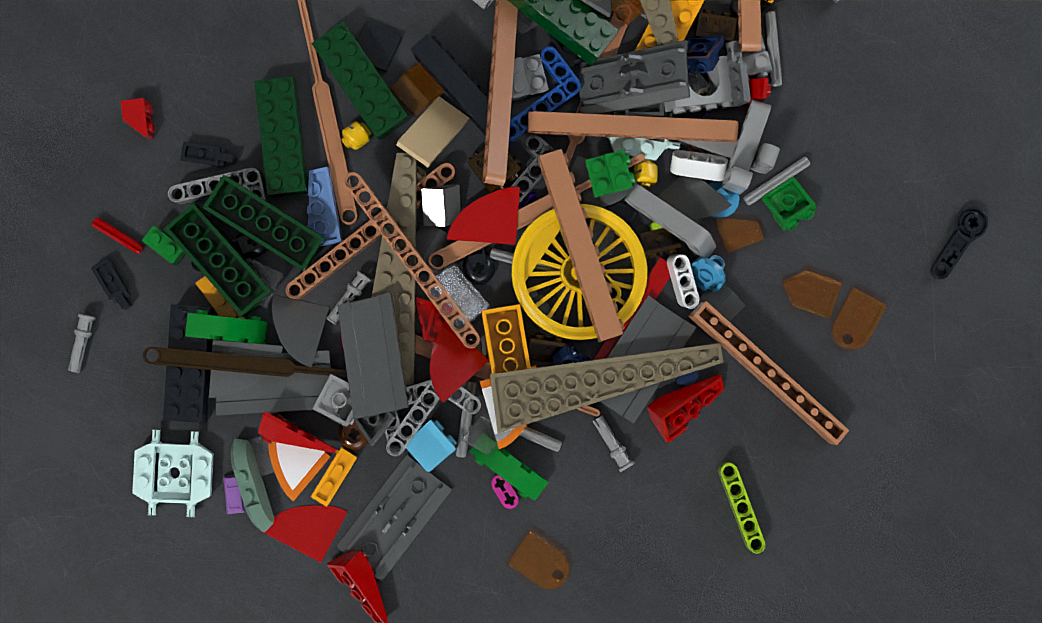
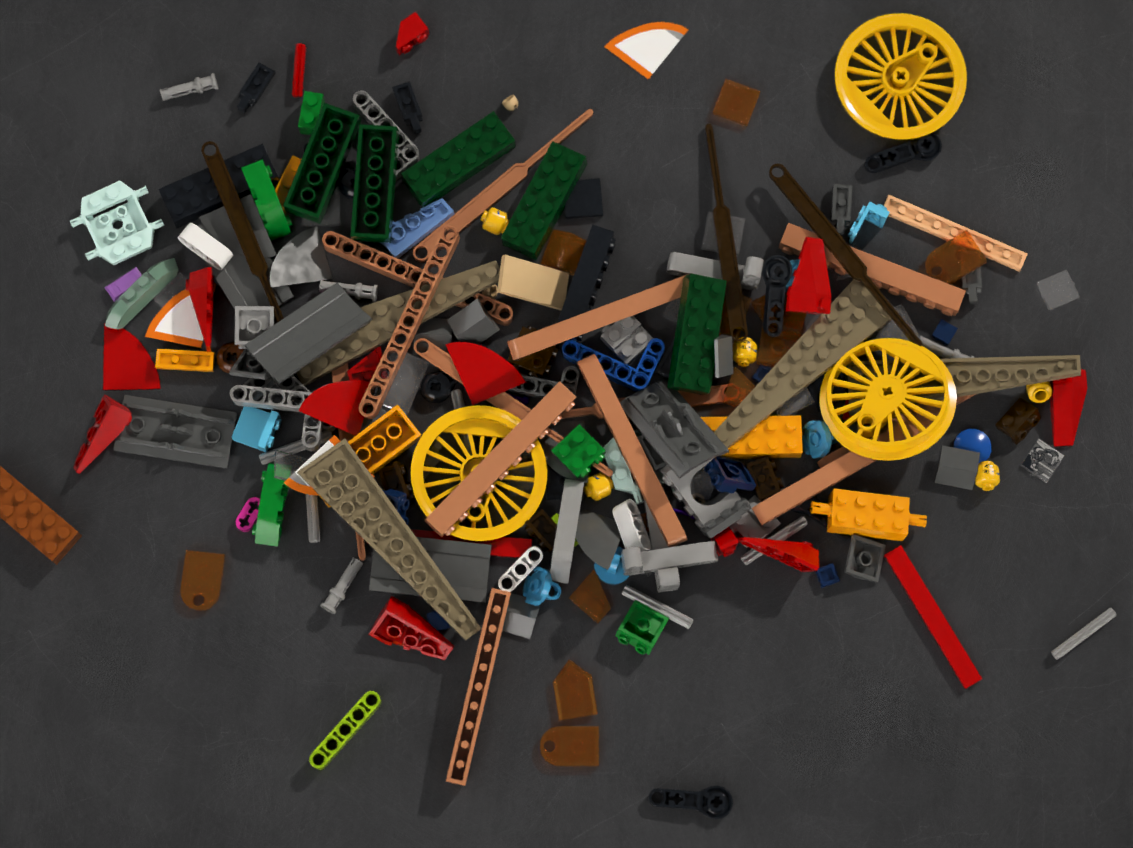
camera: 60 degrees right, 10 degrees down
(240, 406) = (205, 246): none -> white beam
(252, 62) = (510, 103): none -> tan hinge
(797, 37) = (794, 554): none -> red wedge
(827, 20) = (827, 575): none -> dark blue tile

